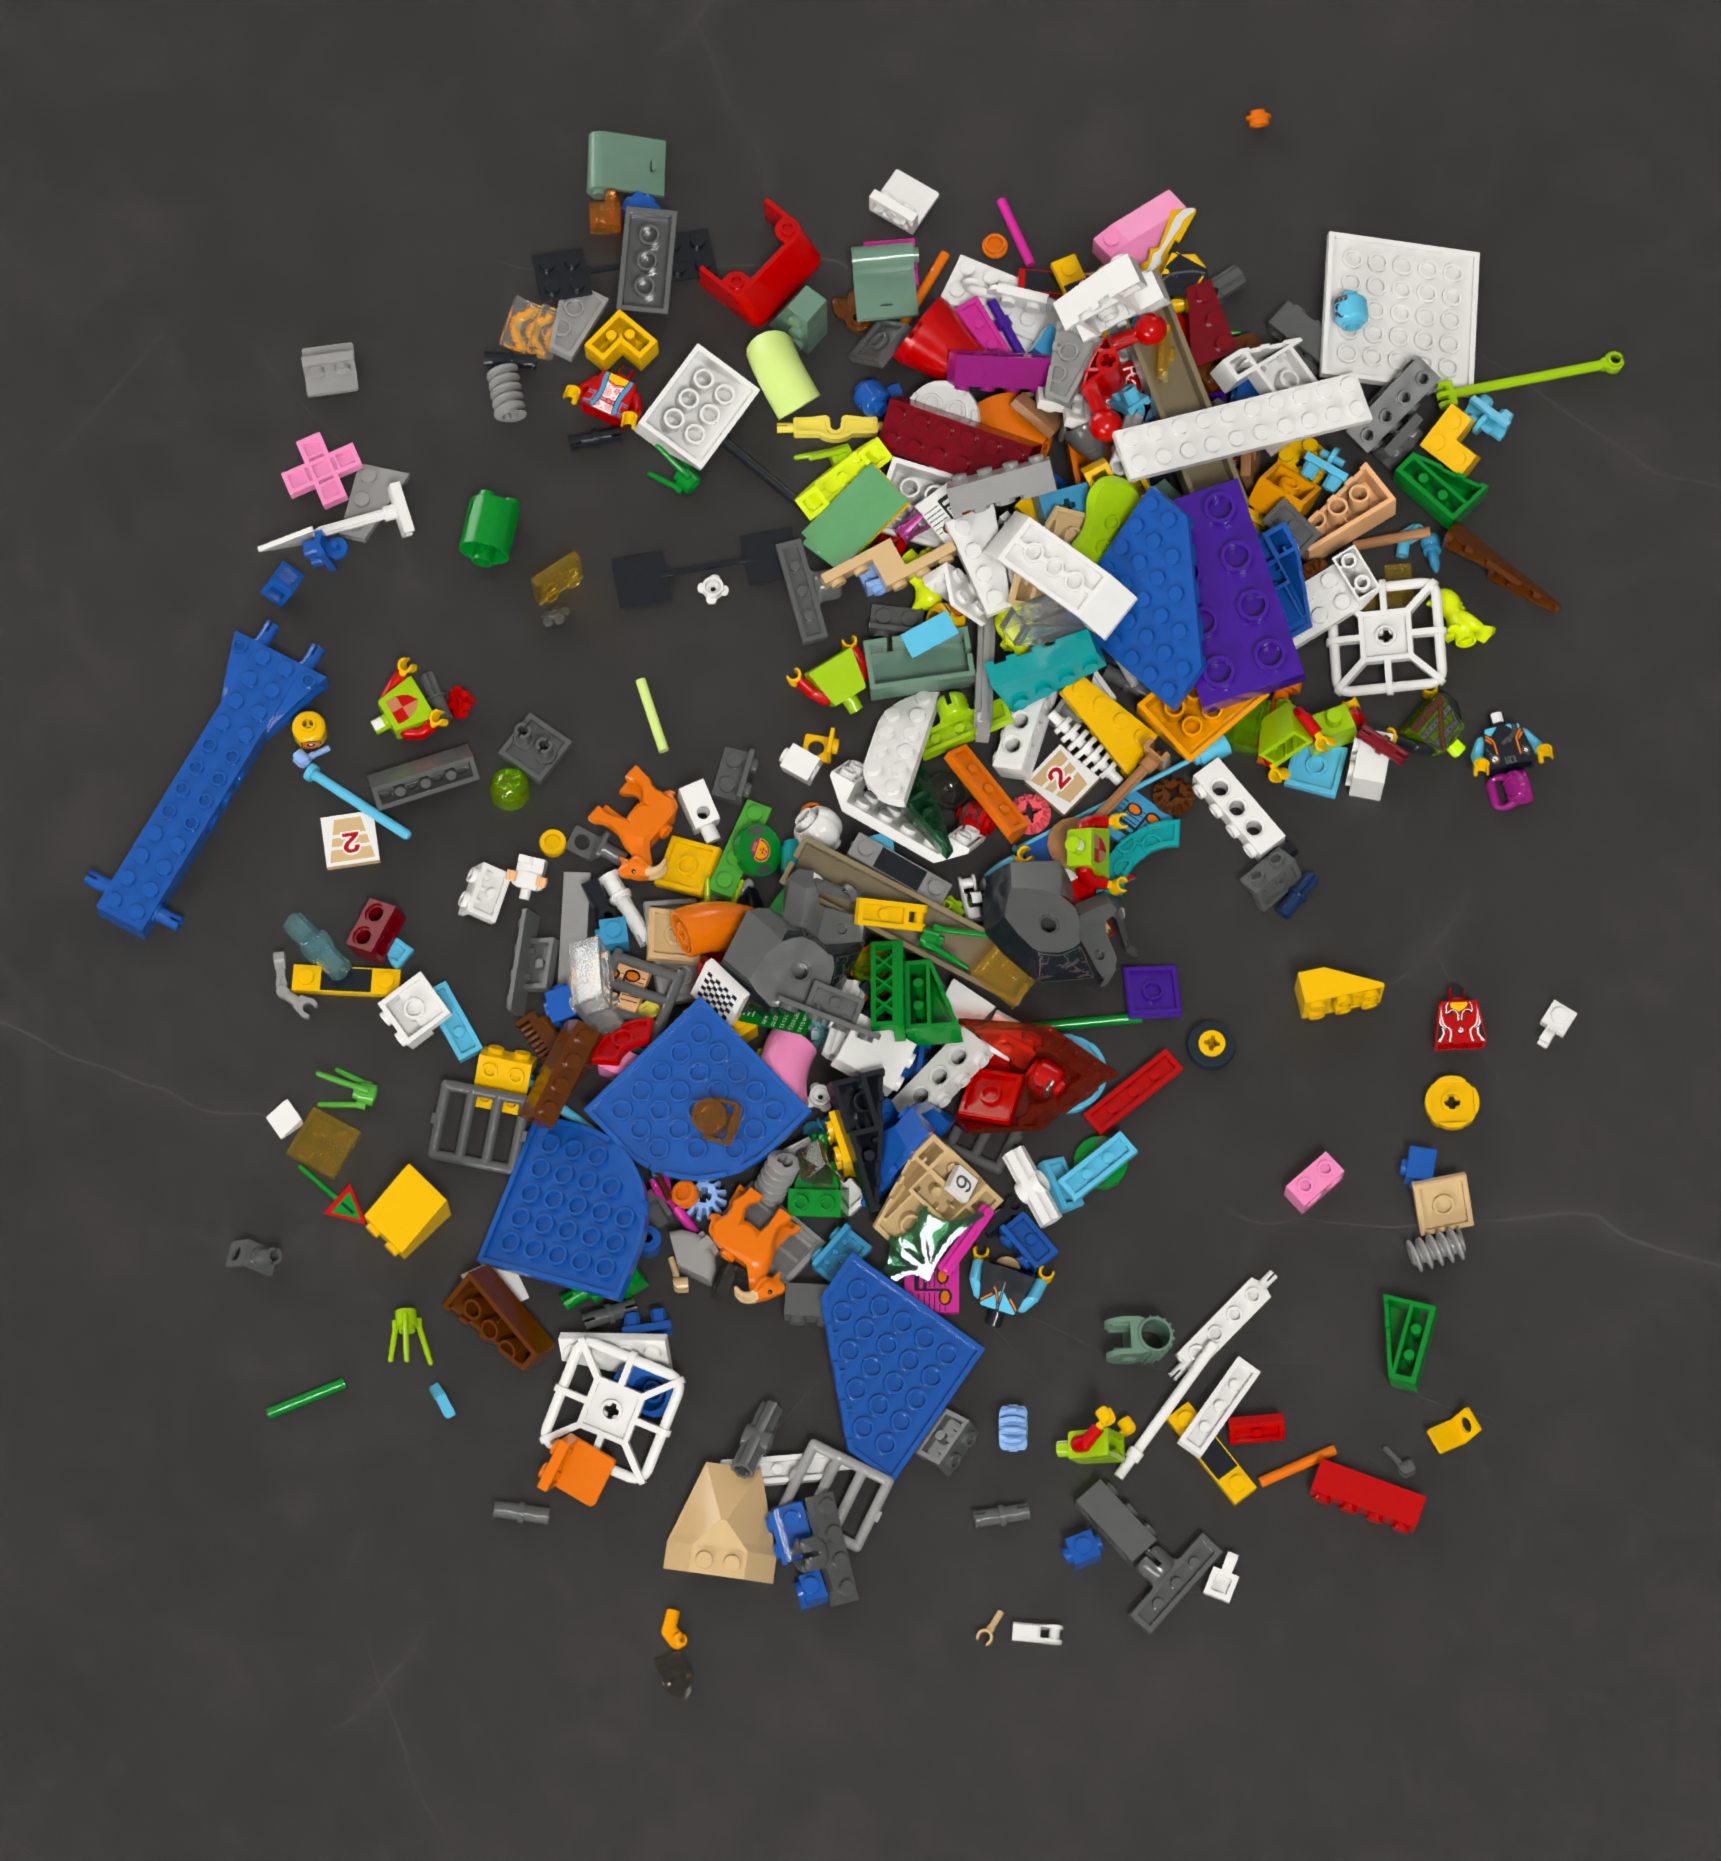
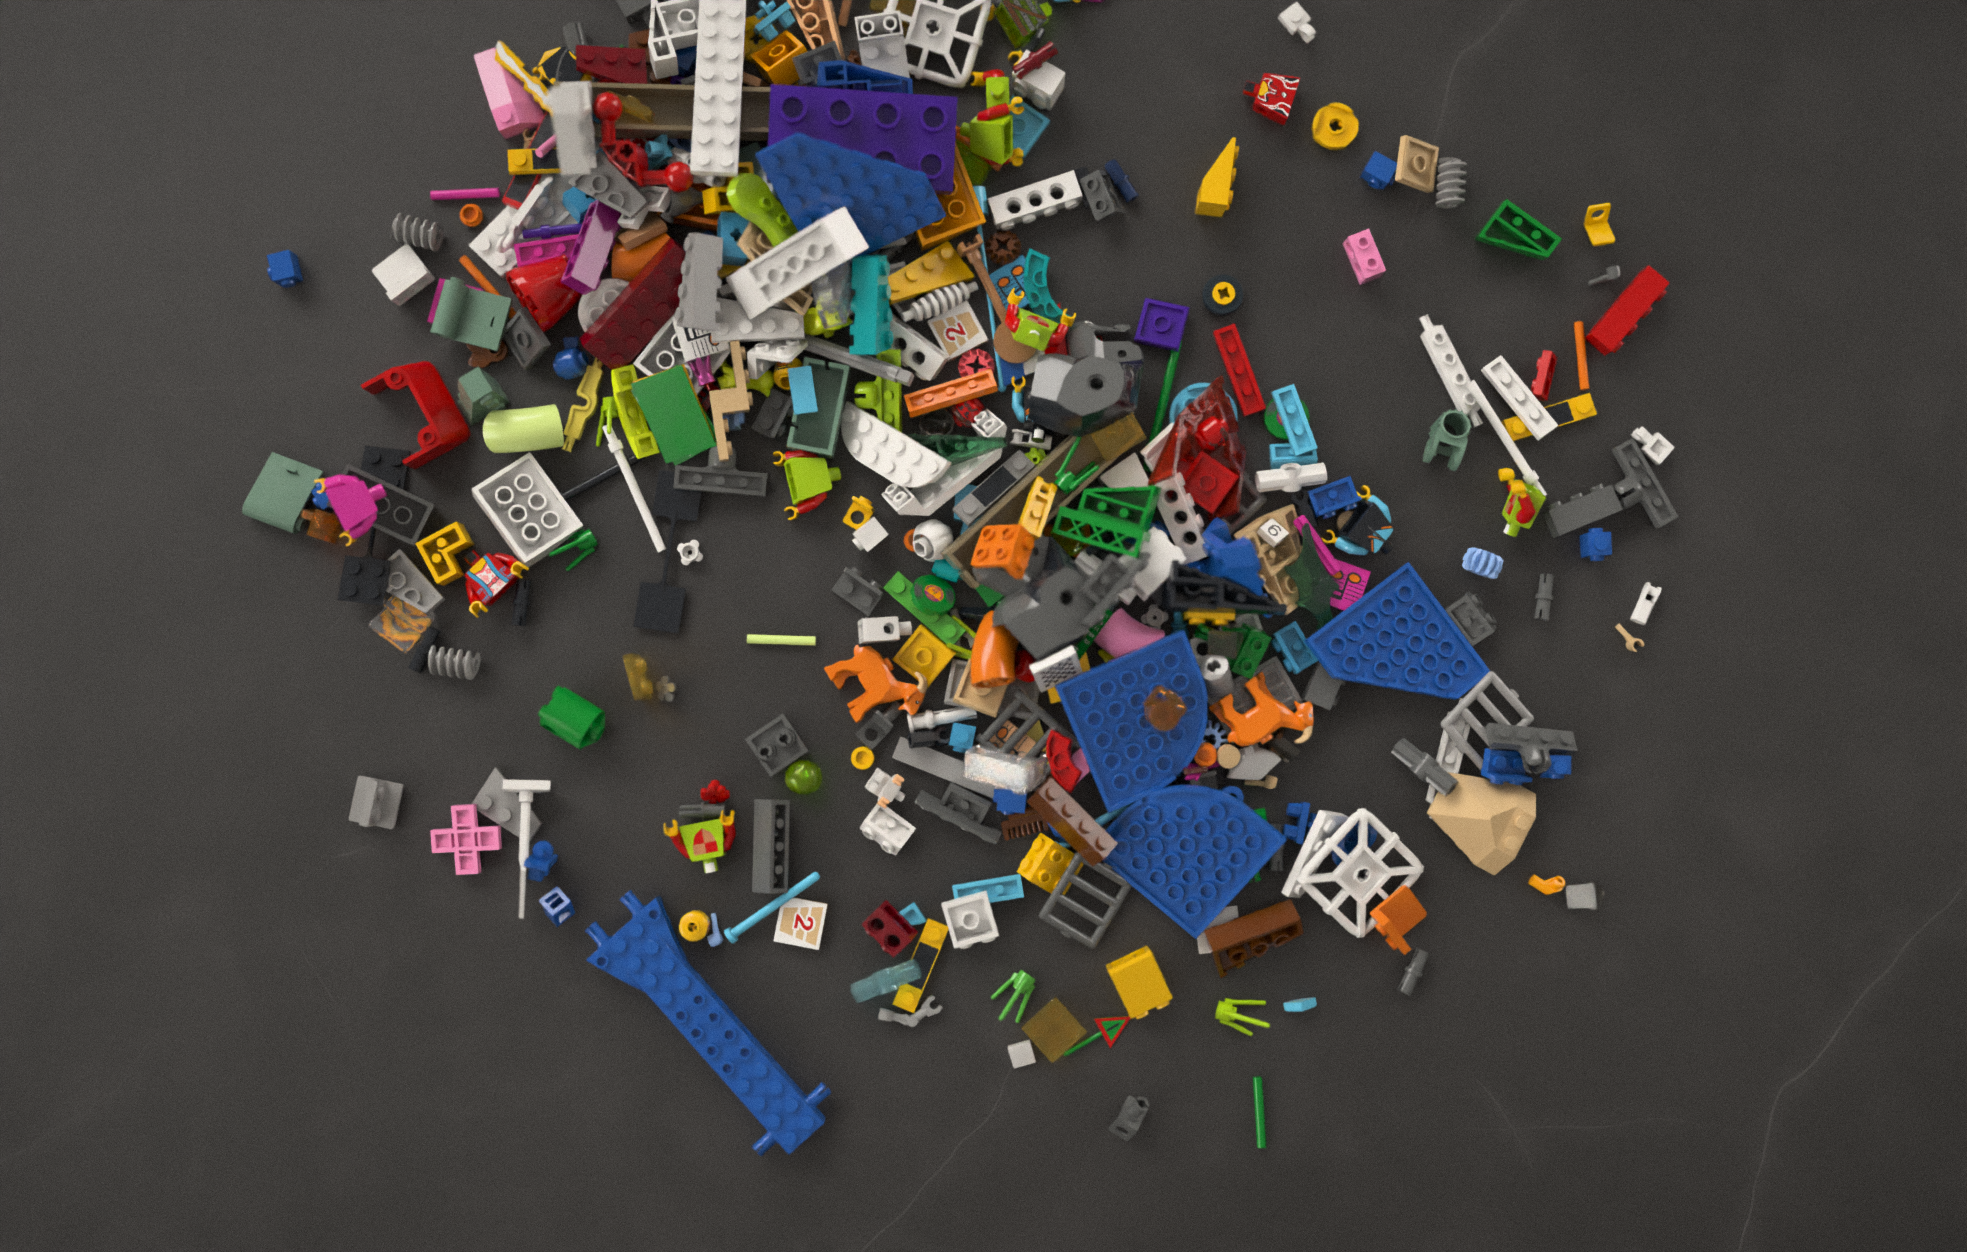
camera: 70 degrees left, 15 degrees up
(637, 230) = (352, 503): none -> dark pink torso
(692, 1219) = (1228, 756): none -> tan tile
(797, 474) = (616, 447): none -> white bar
(831, 891) = (1004, 547): none -> orange bracket
(865, 84) = (284, 268): none -> blue brick
(954, 198) = (415, 233): none -> light grey piece

